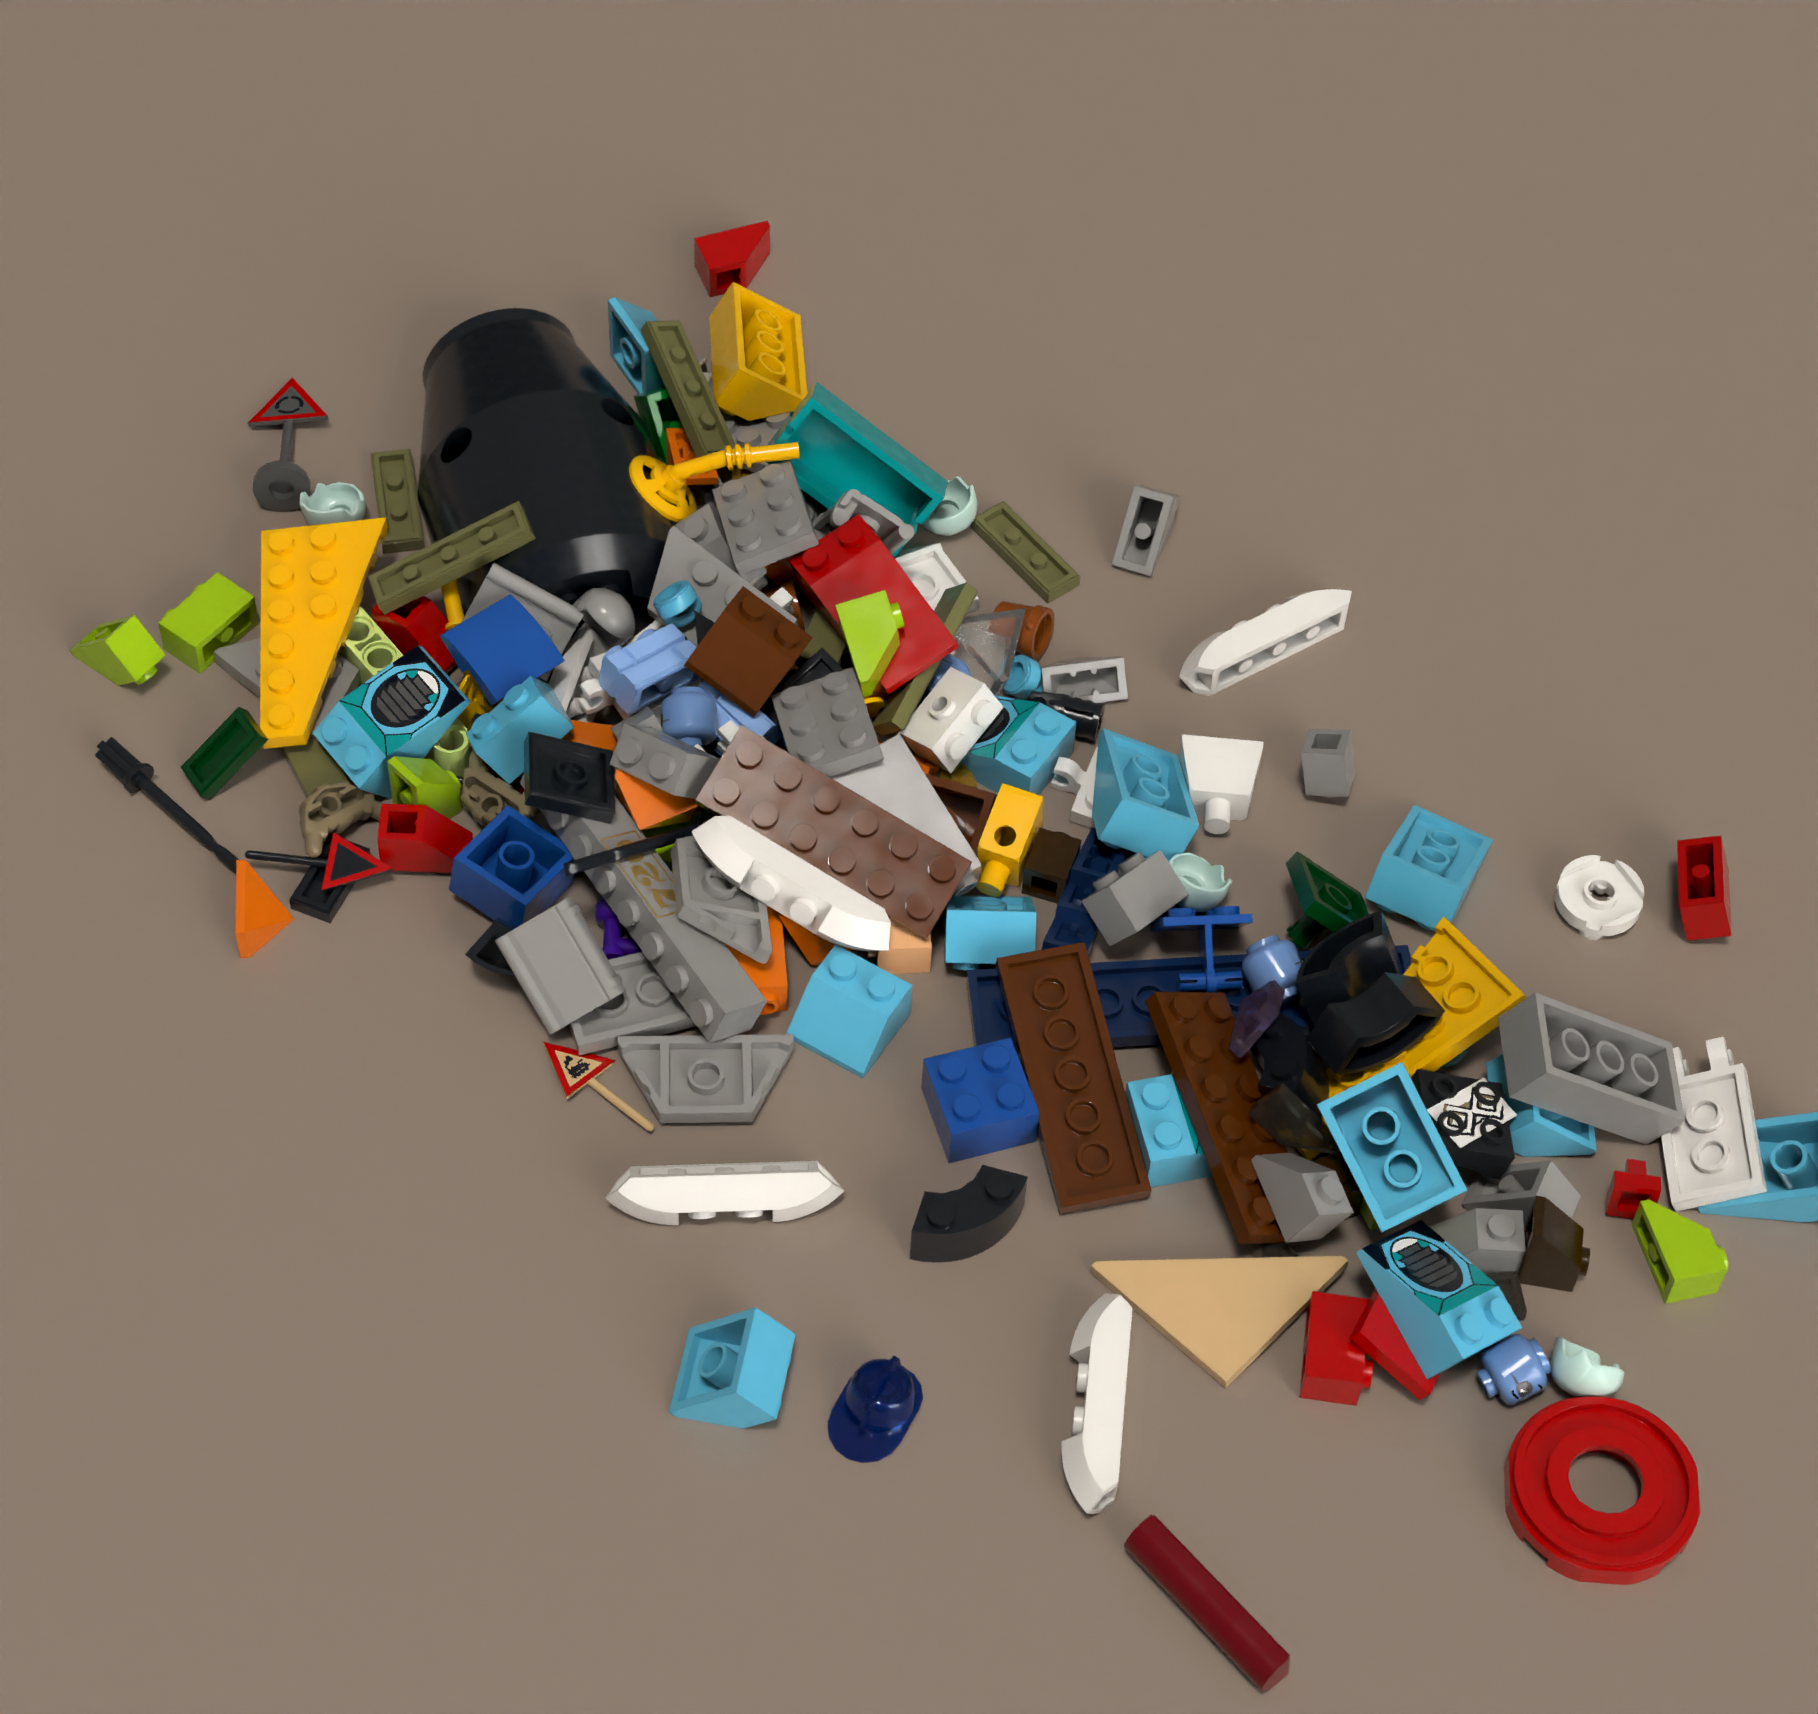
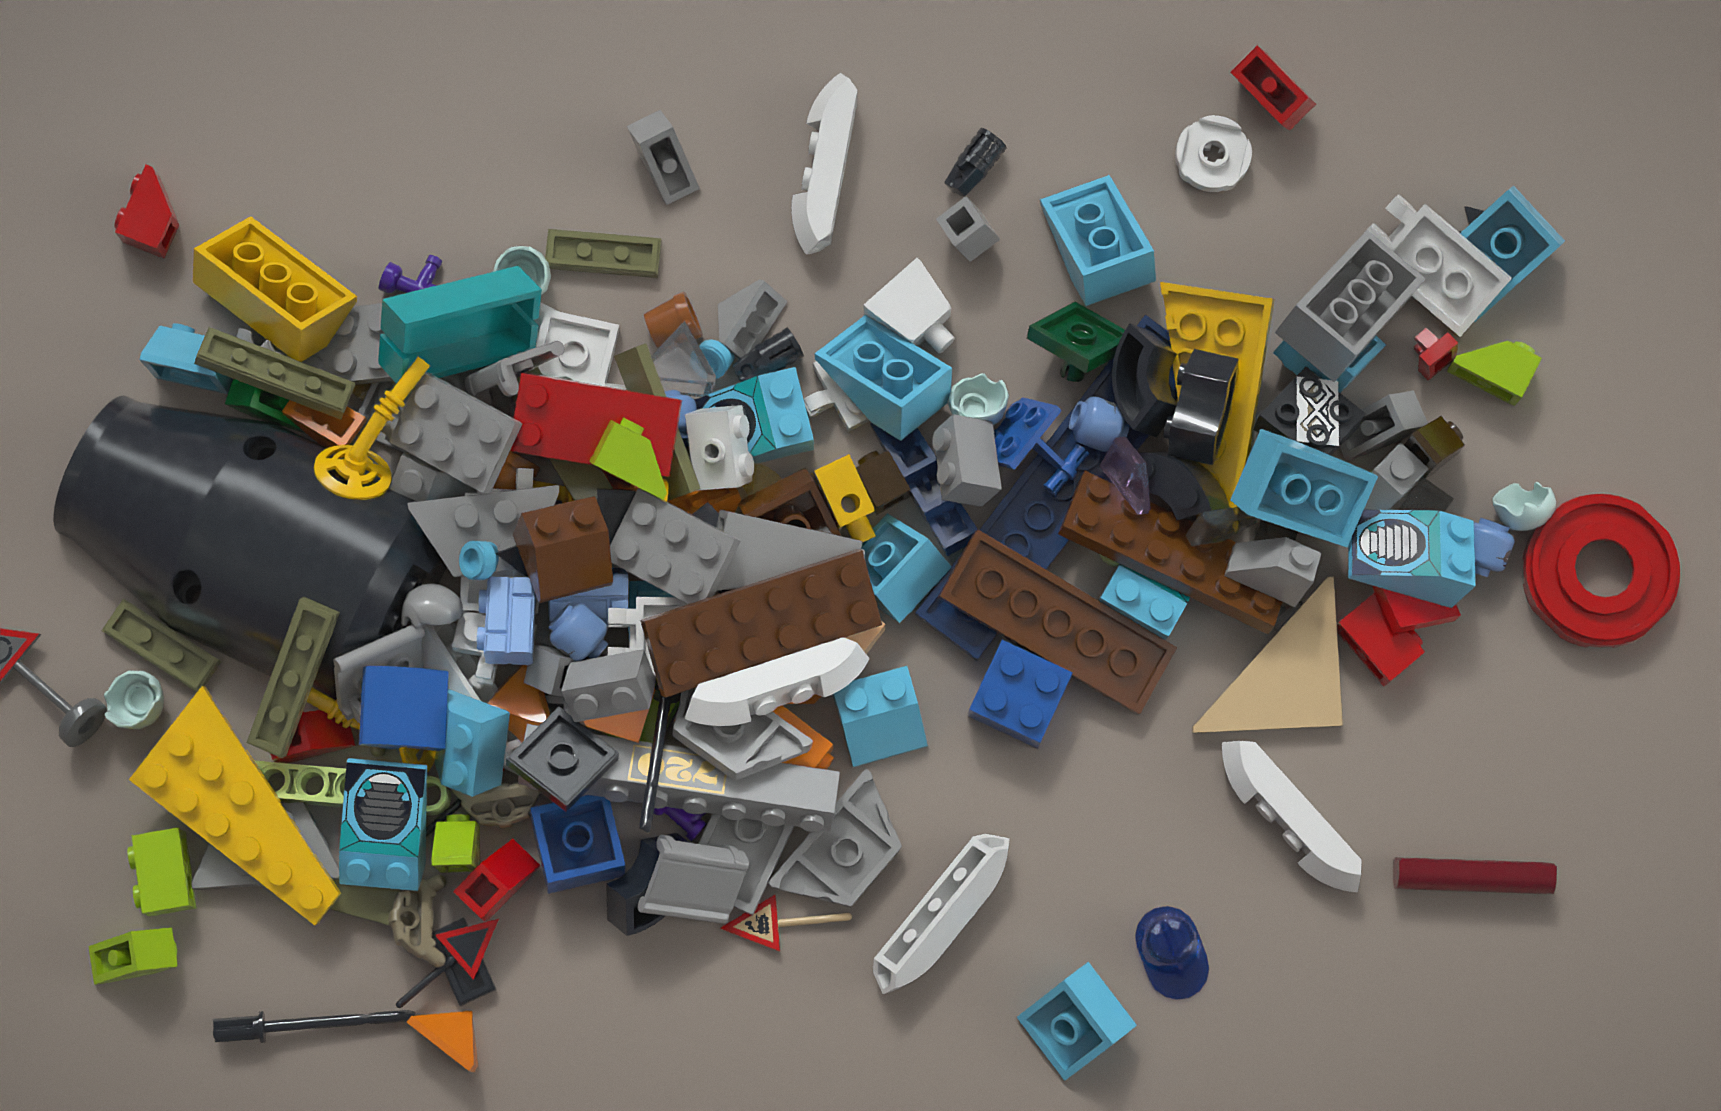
camera: 45 degrees left, 25 degrees up
(224, 753) = (298, 955): dark green tile -> none
(968, 1219) = (1100, 778): black brick -> none
(1392, 734) = (975, 162): none -> black hinge

